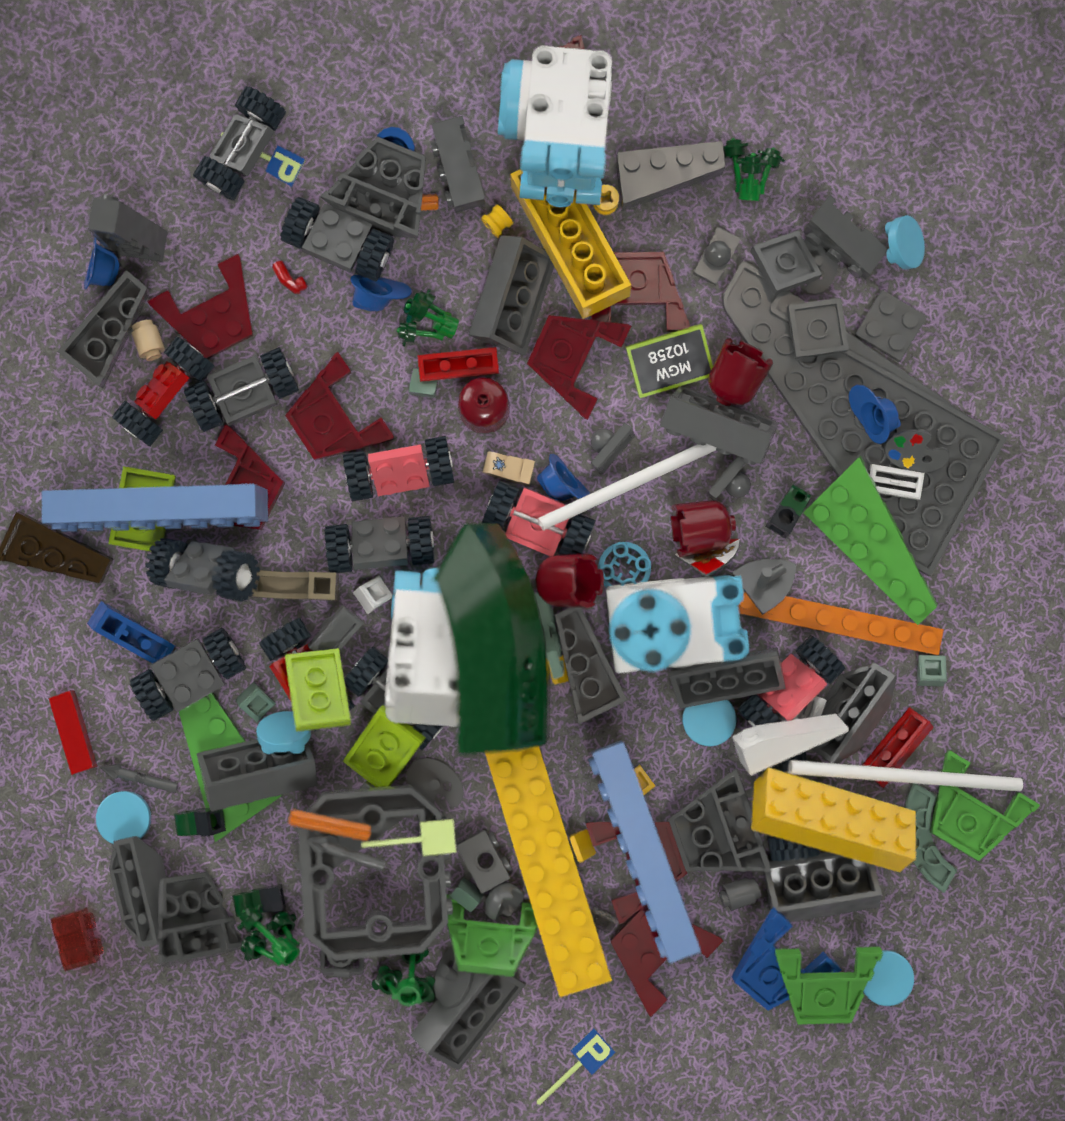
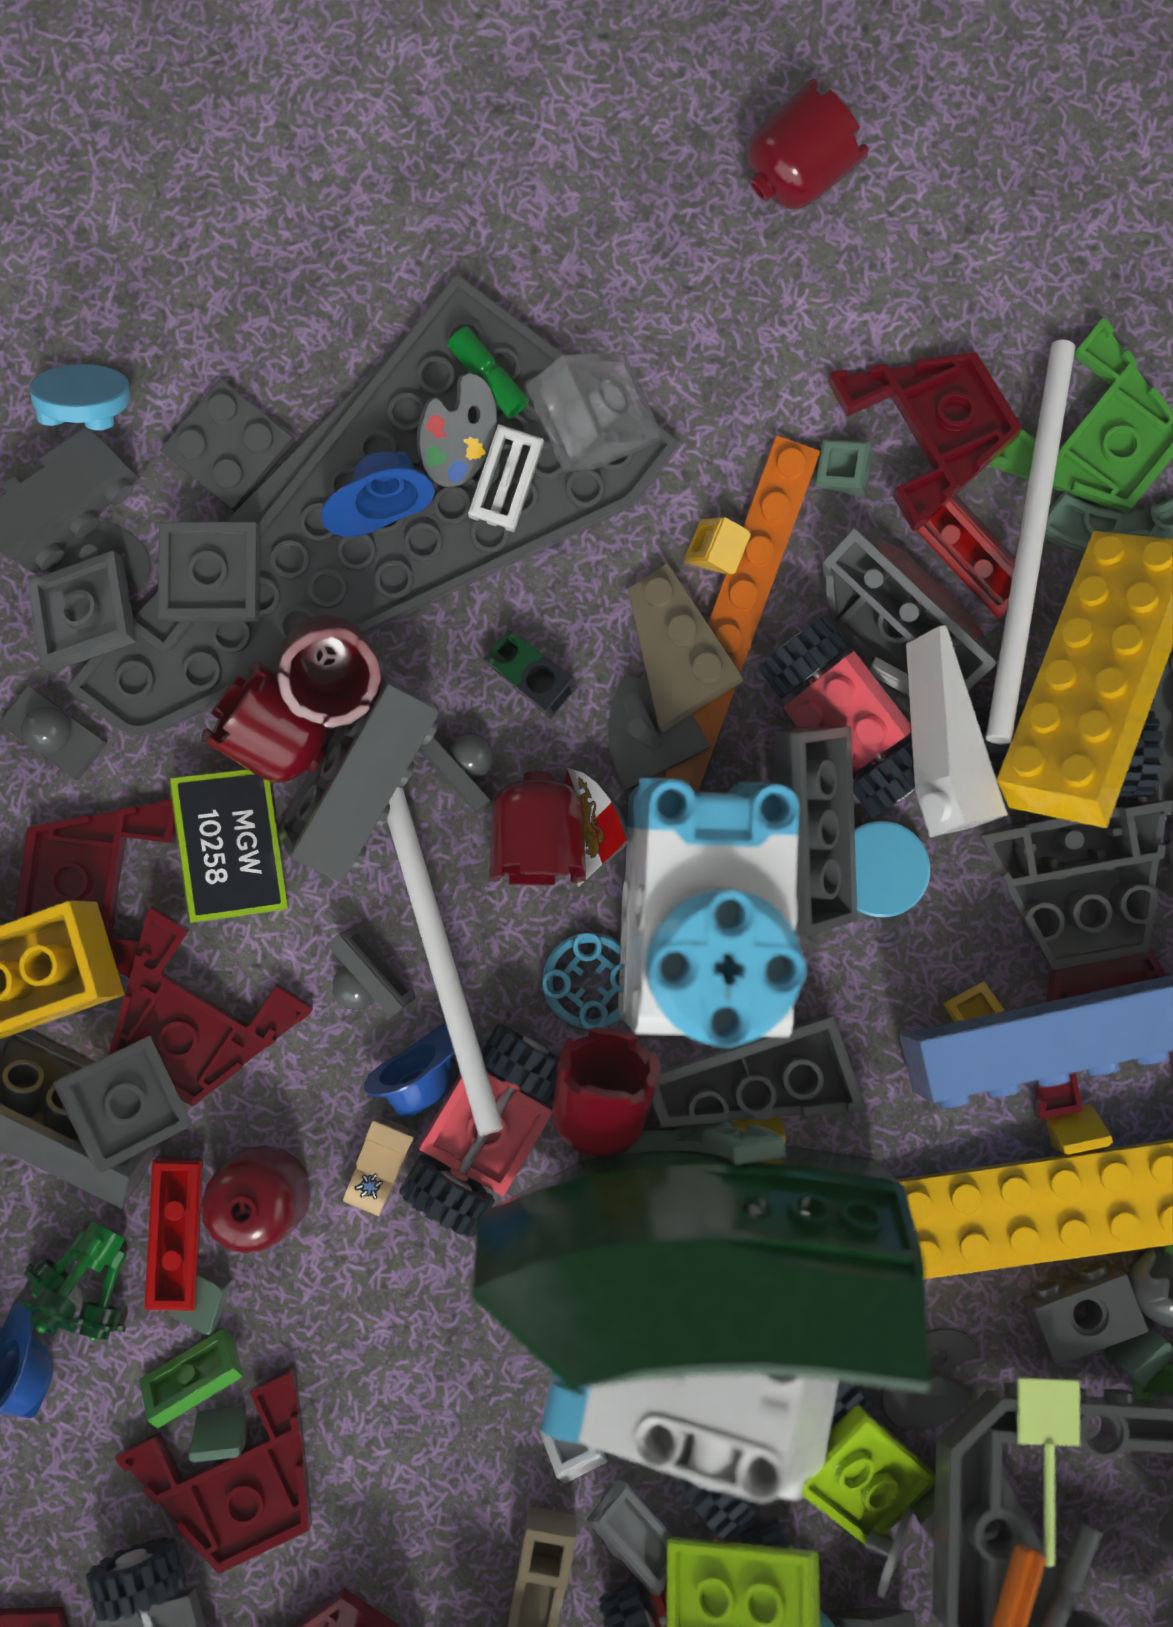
camera: 80 degrees left, 0 degrees up
(347, 769) = (890, 1549): none -> dark grey piece
(356, 404) = (219, 1434): none -> sand green slope
(379, 543) = (482, 1436): plate -> none
(383, 385) = (190, 1378): none -> bright green plate
(398, 469) = (350, 1378): plate -> none
(526, 328) = (122, 1104): none -> dark grey plate
(763, 402) = (334, 689): none -> cylinder
(814, 590) = (678, 649): none -> dark tan wing
(864, 529) = (585, 543): bright green wing -> none
(875, 605) = (717, 545): none -> yellow slope
(940, 524) = (593, 410): none -> clear slope
(956, 460) = (481, 362): none -> green piece
(971, 725) = (952, 415): none -> dark red wing

